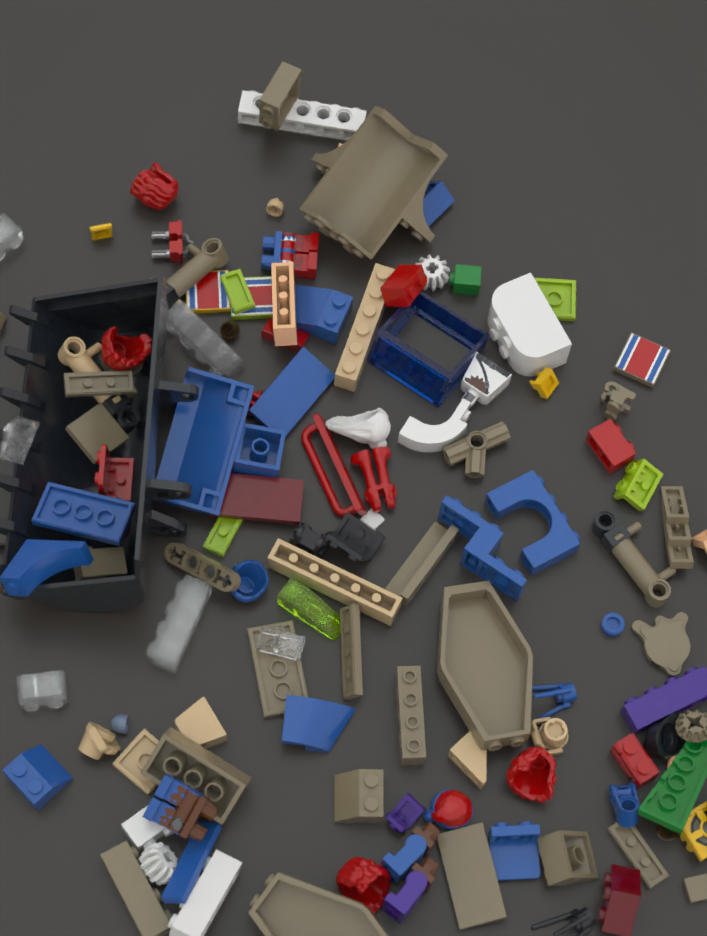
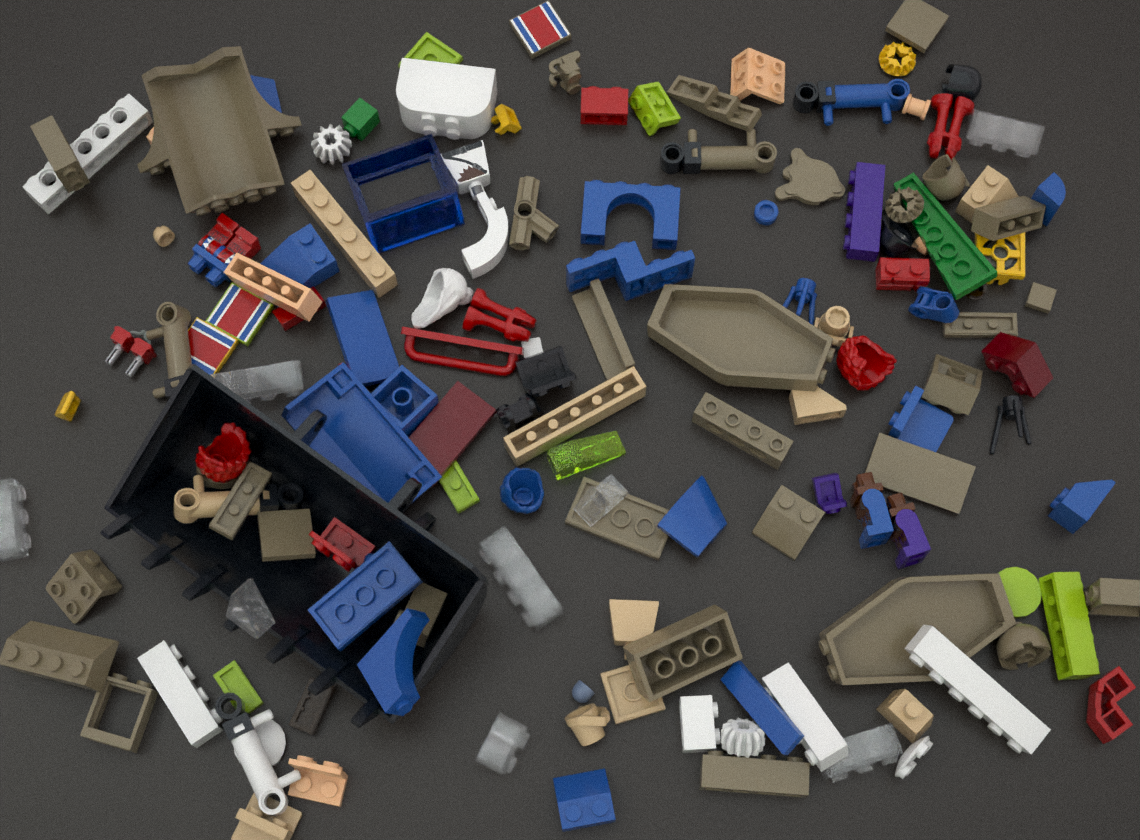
camera: 50 degrees left, 5 degrees up
(154, 187) = (63, 327): red hair -> none
(184, 816) = (709, 685): hips -> none
(200, 570) = (479, 519): dark tan beam -> none
(226, 327) = (253, 354): dark brown hinge -> none
(237, 291) = (226, 322): lime tile -> none
(351, 651) = (649, 443): dark tan tile -> none
(364, 882) = (870, 567): red hair -> none
(403, 285) = (332, 172): red brick -> none
(450, 809) = (847, 453): red piece -> none

